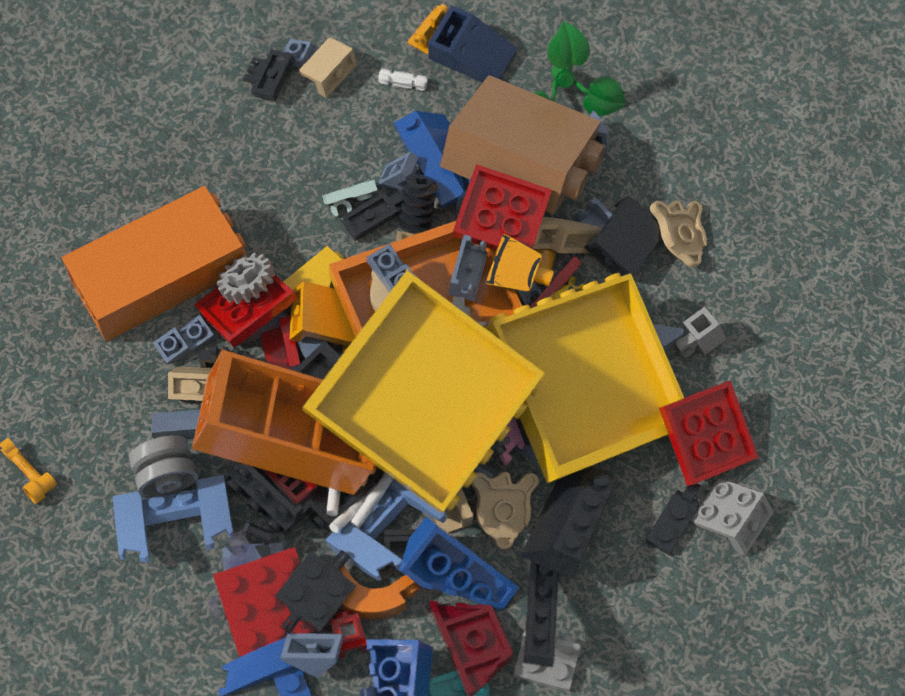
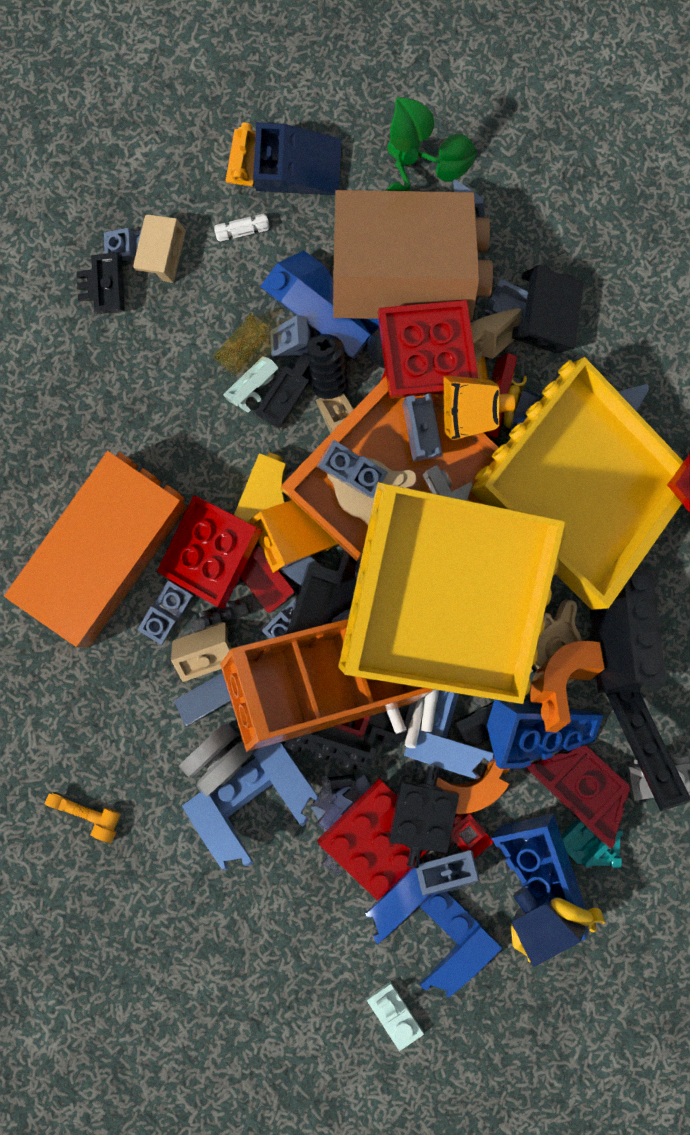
camera: 25 degrees left, 20 degrees up
(246, 278) = (199, 530): light grey gear -> none
(358, 164) = (242, 344): none -> clear yellow hinge
(499, 517) = (573, 661): none -> orange arch
(681, 230) = (597, 274): tan tile -> none
(702, 332) = (664, 377): light grey brick -> none

